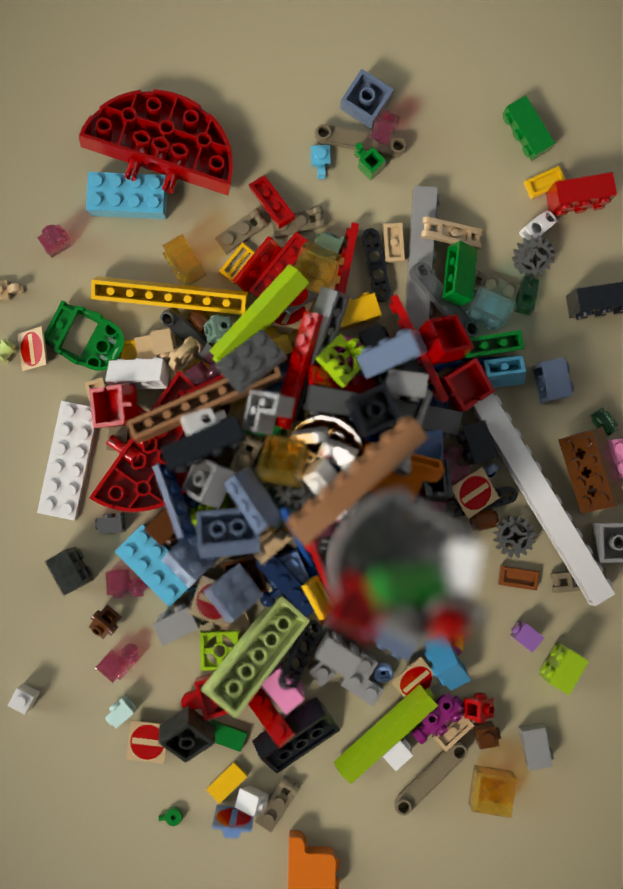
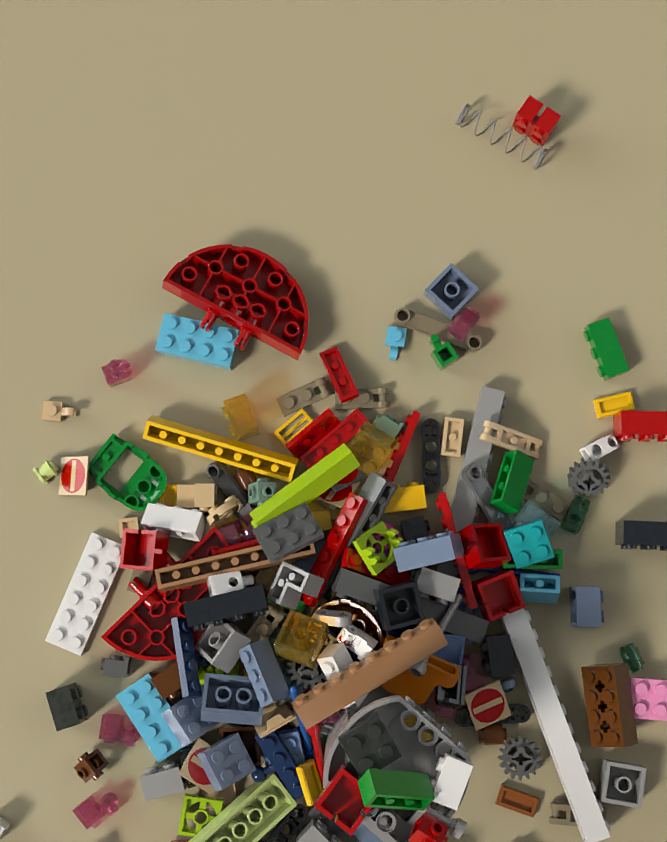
camera: 10 degrees right, 5 degrees down
(488, 328) = (529, 543): none -> teal plate

